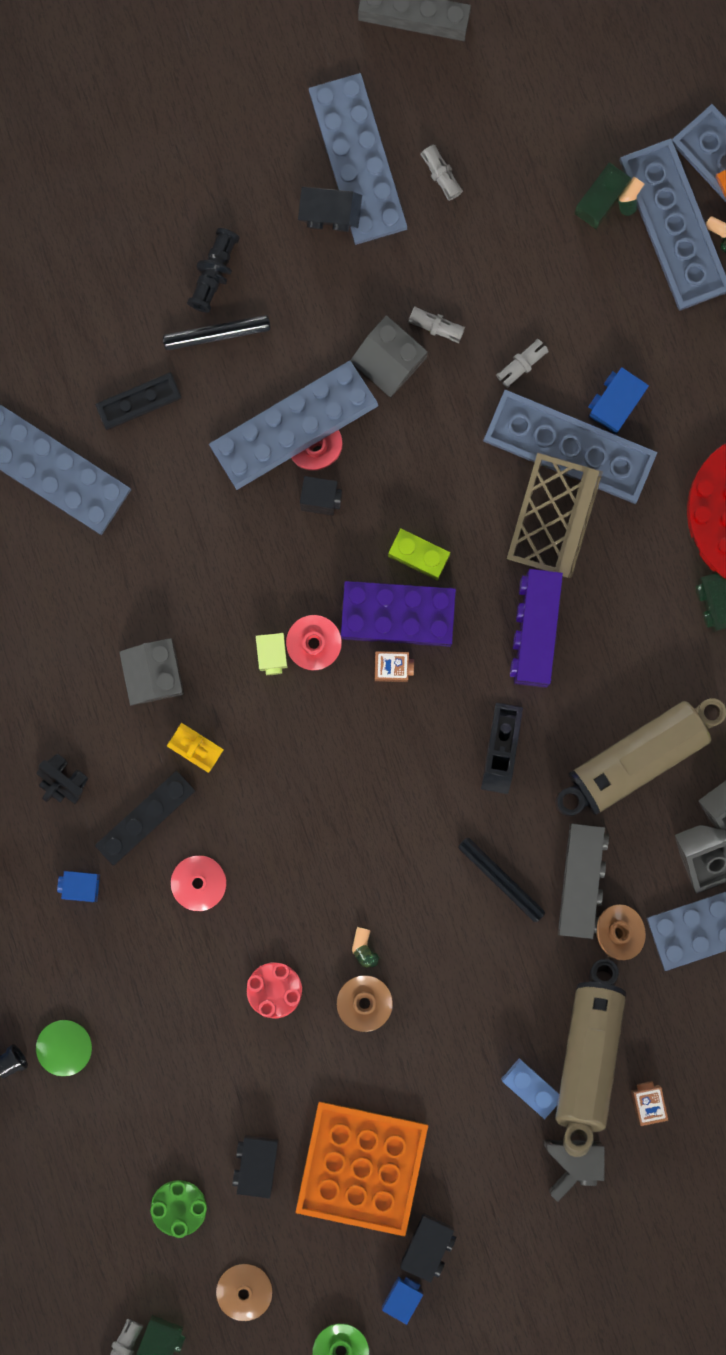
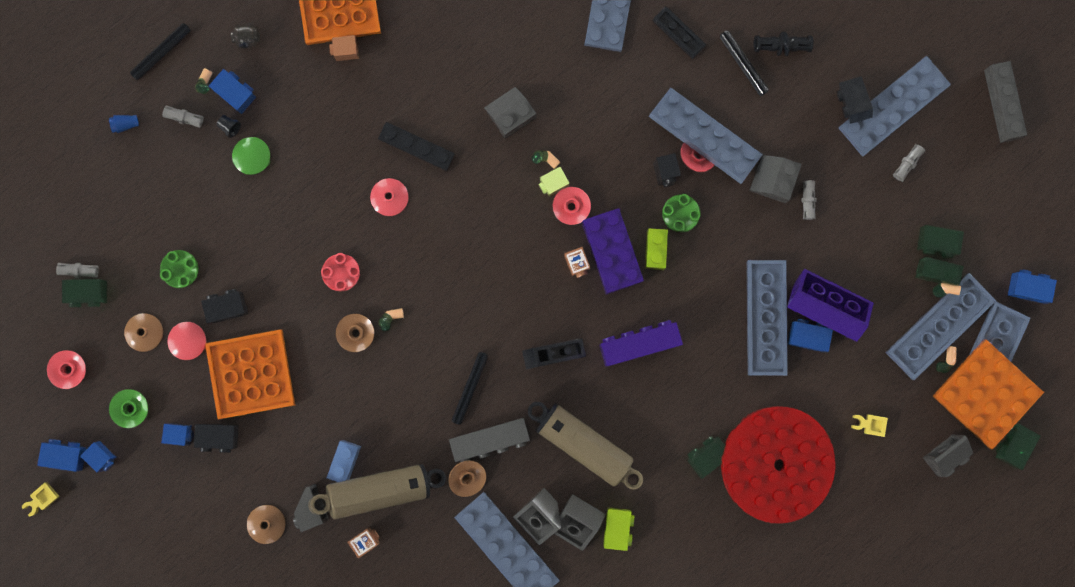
camera: 65 degrees right, 0 degrees up
(57, 784) = (421, 75): black hips -> none
(79, 886) = (356, 122): blue brick -> none
(195, 747) = (473, 158): yellow hips -> none
(231, 650) = (545, 156): none -> arm
(280, 1237) = (186, 340): none -> coral dish
(383, 501) = (681, 213): none -> bright green dish
(522, 363) = (807, 264): light grey pin -> none
(562, 1186) = (287, 506): dark grey tile -> none
(563, 176) = (940, 240): none -> clear green brick
(566, 1214) = (274, 519): none -> medium nougat dish
(577, 523) = (718, 342): dark tan fence -> none
(588, 357) = (830, 305): none -> dark purple brick
(673, 83) = (1032, 287): none -> blue brick

